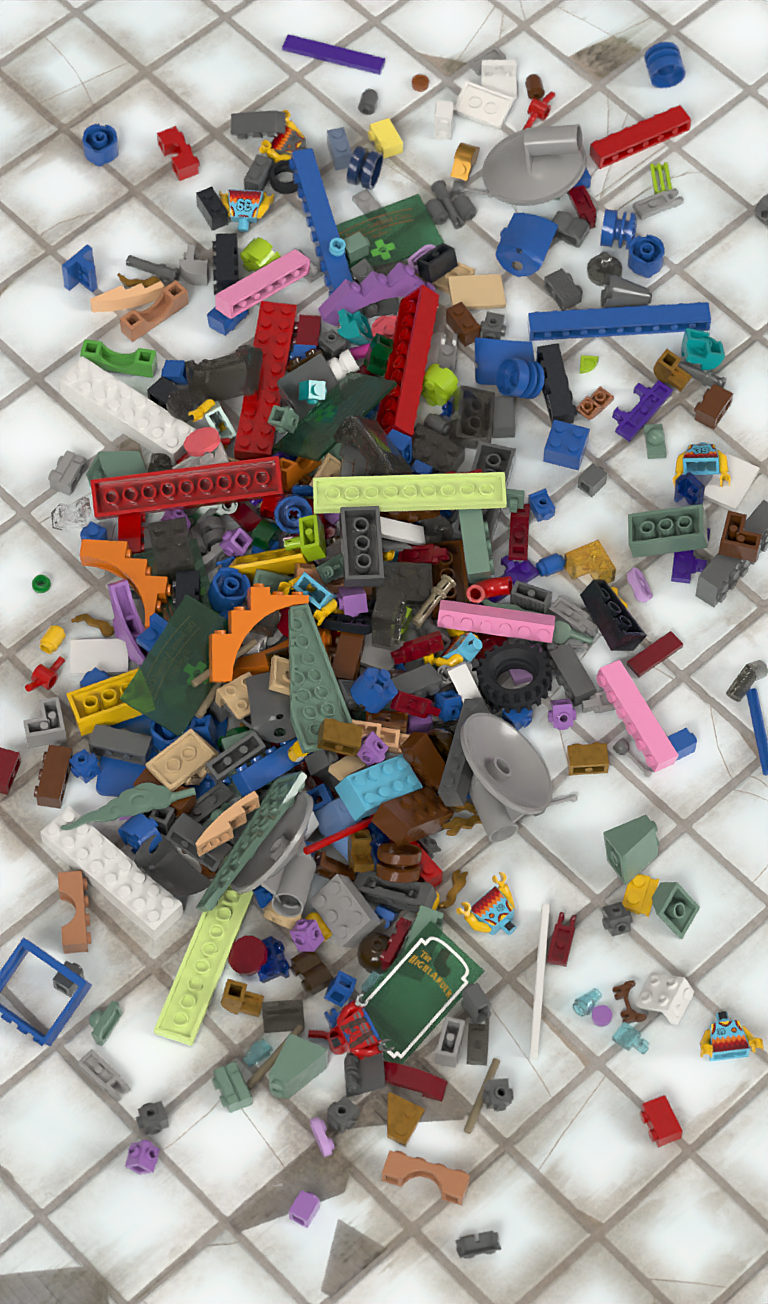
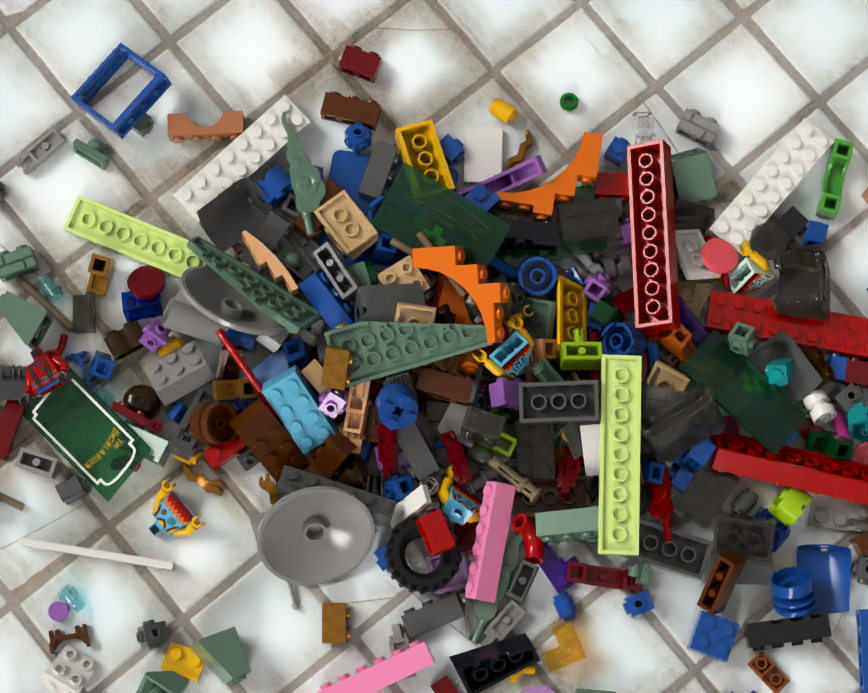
camera: 95 degrees right, 20 degrees up
(45, 676) = (461, 103): red piece -> none
(48, 728) = (402, 107): light grey brick -> none
(478, 1043) = (39, 491): clear smoke panel -> none
(494, 657) = (436, 533): none -> red brick
(517, 432) = (721, 582): none -> reddish brown brick
(561, 714) = (385, 601): medium lavender brick -> none
(561, 941) = (138, 579): dark red hinge -> none
(588, 363) = (822, 670): lime tile -> none
(592, 480) = (669, 660): dark grey brick -> none
(622, 748) = (346, 660): hinge -> none
(630, 1037) = (33, 634): clear light blue plate -> none

